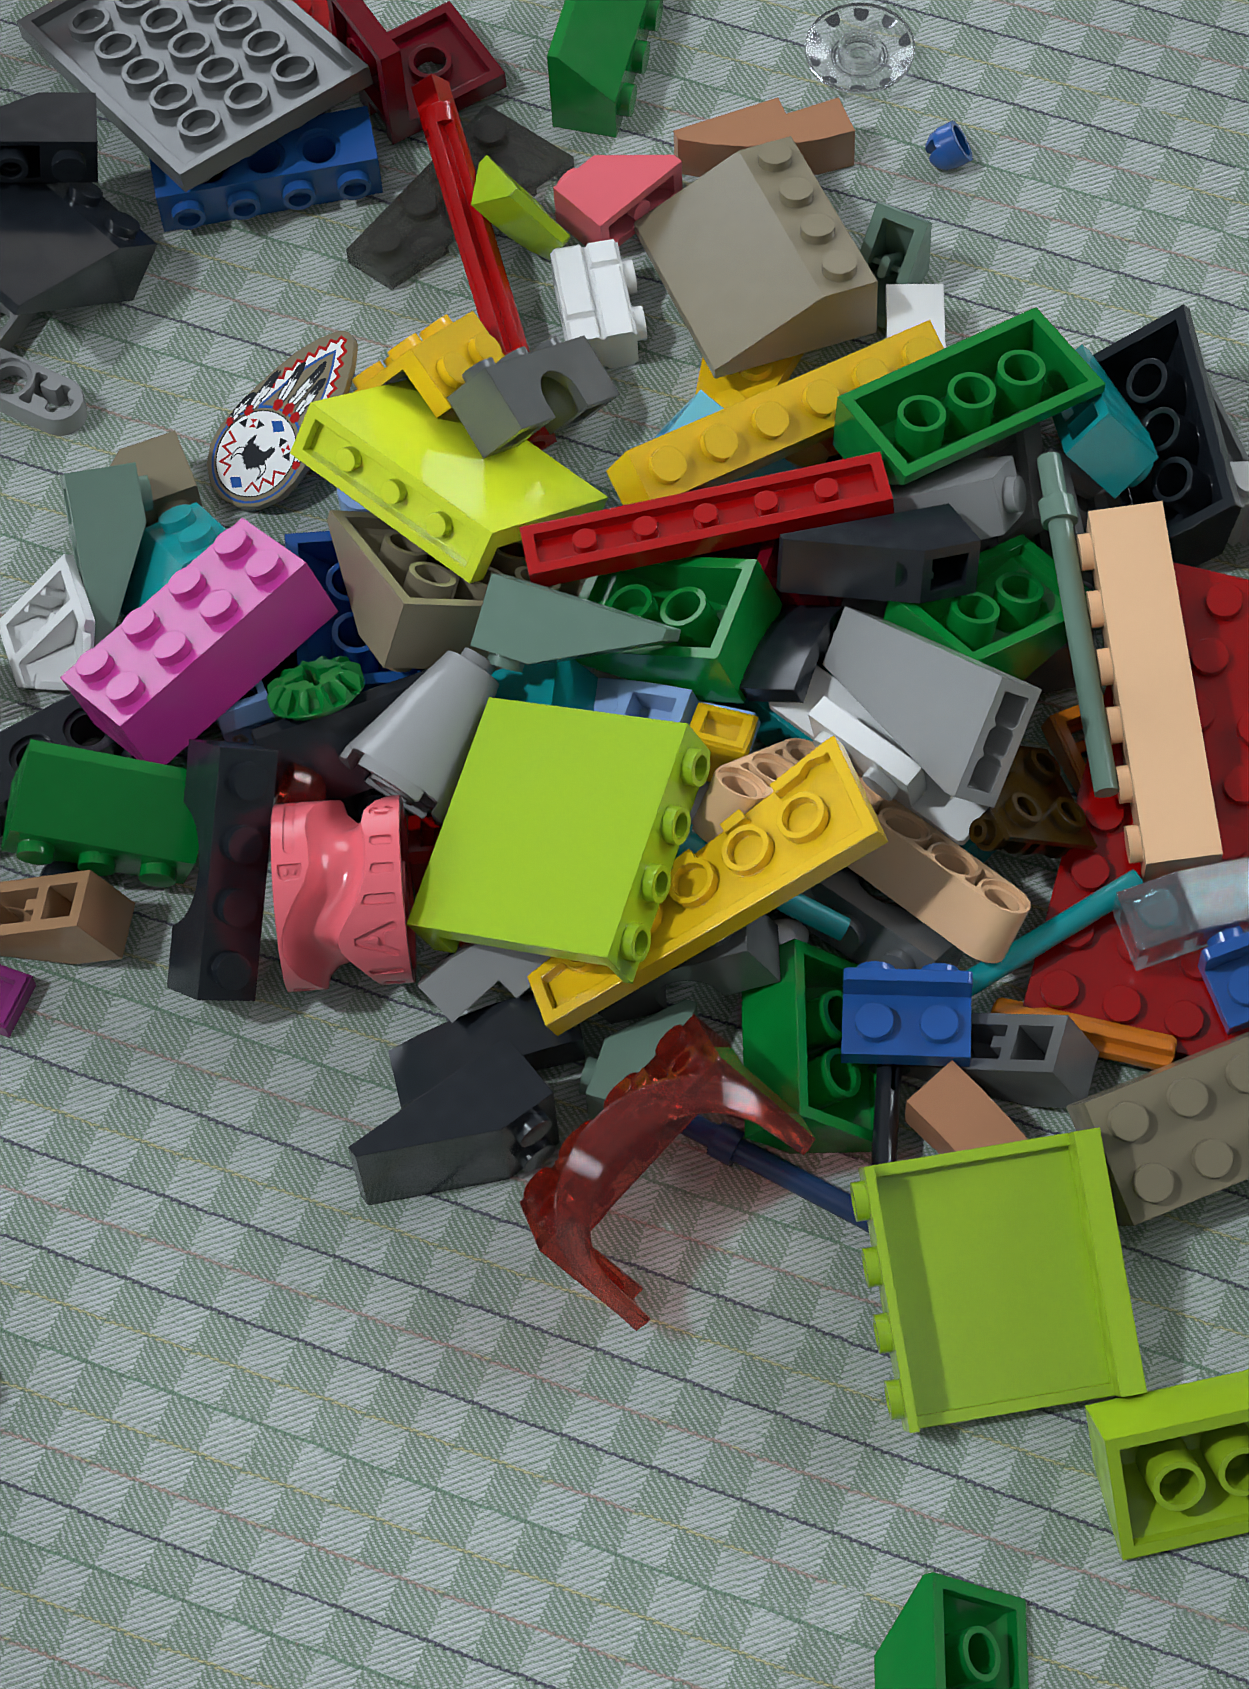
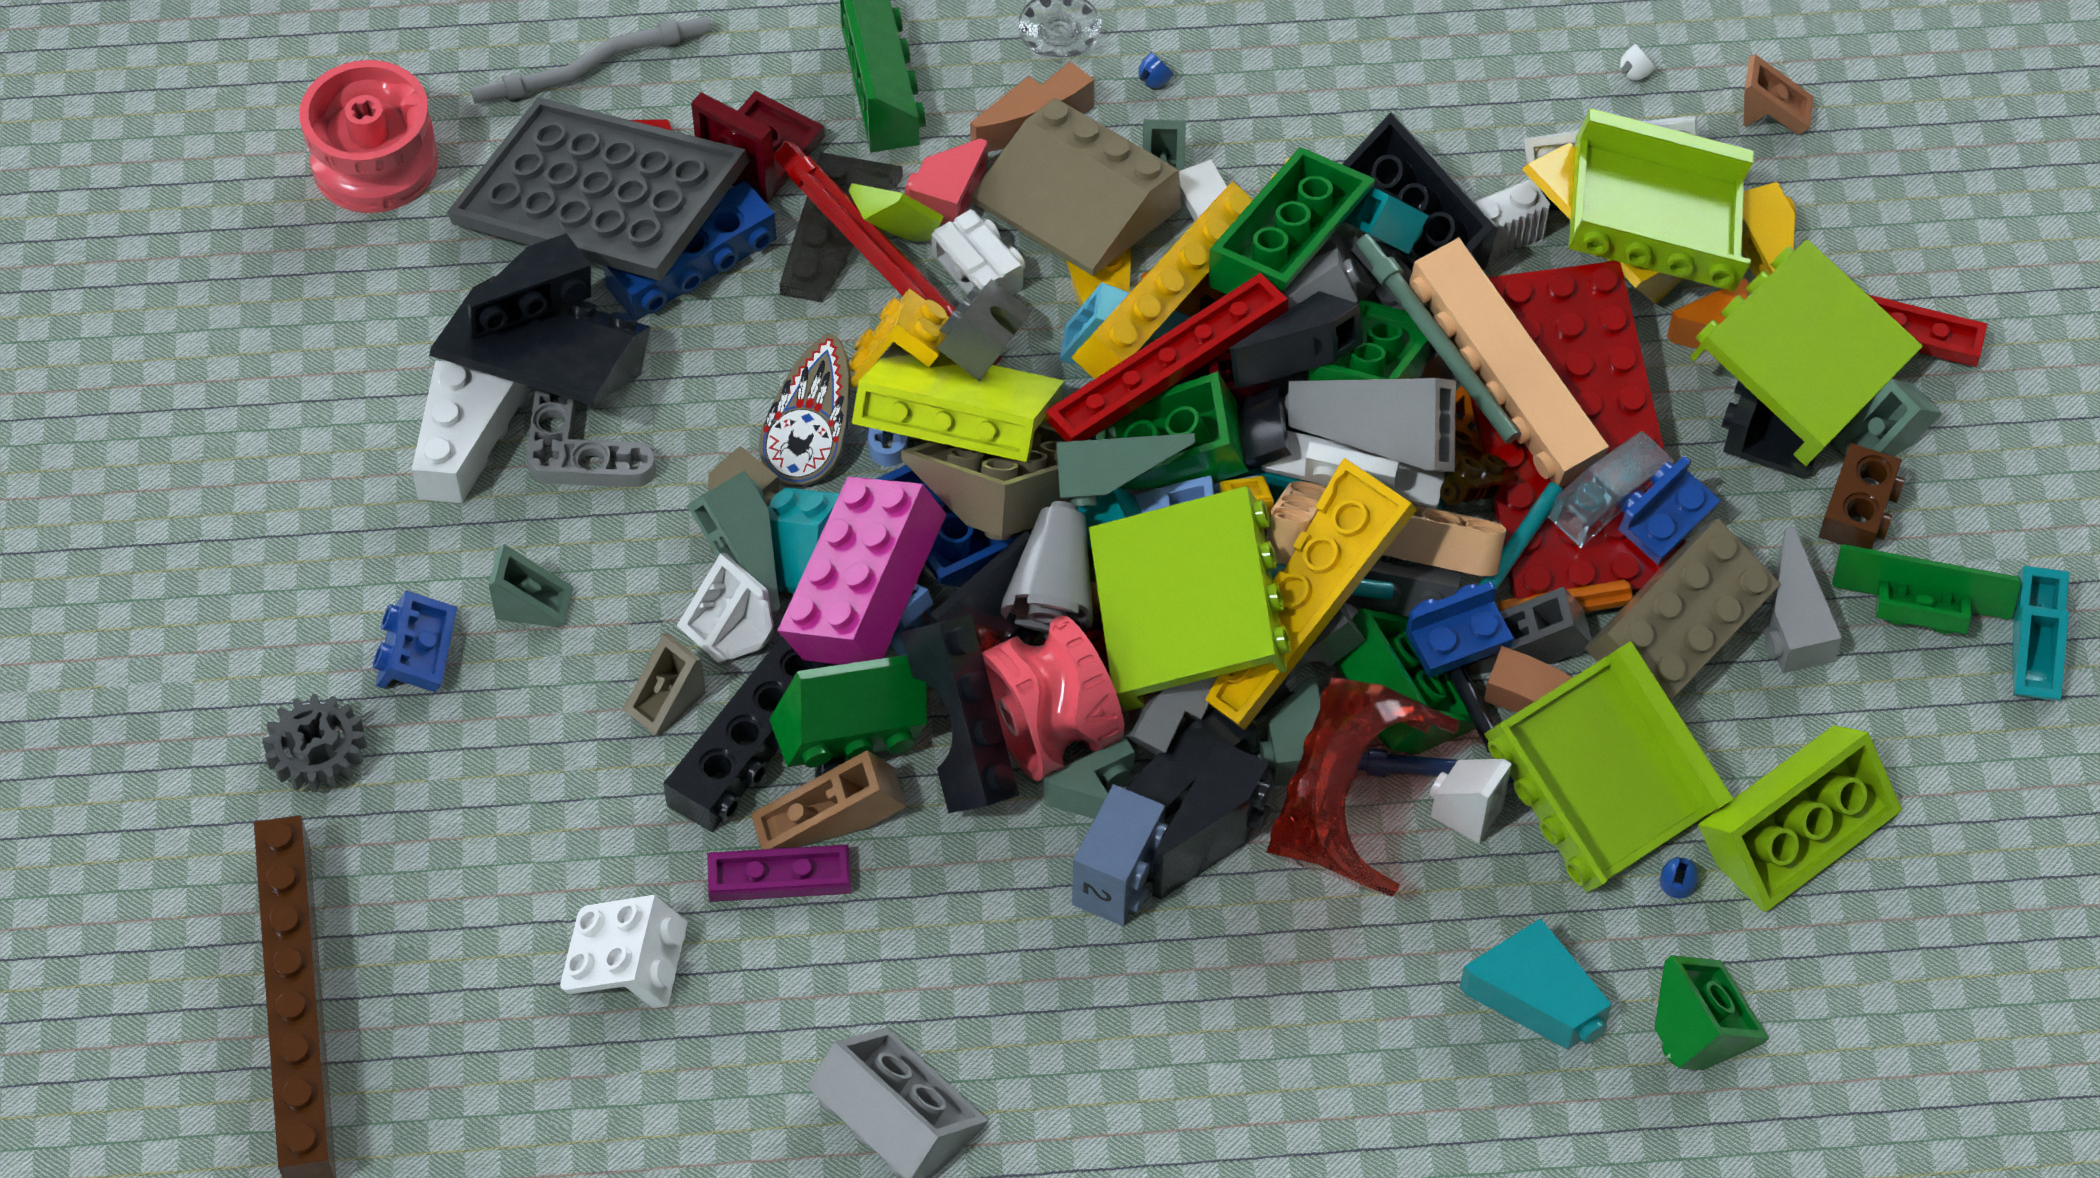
camera: 30 degrees left, 5 degrees down
(310, 1123) = (1118, 856): none -> sand blue brick
(315, 688) = (959, 570): green gear -> none
(344, 1014) = (1082, 784): none -> sand green slope
(762, 1531) = (1539, 987): none -> teal slope
(811, 1242) = (1471, 795): none -> white slope
(1042, 1472) = (1690, 880): none -> blue hinge

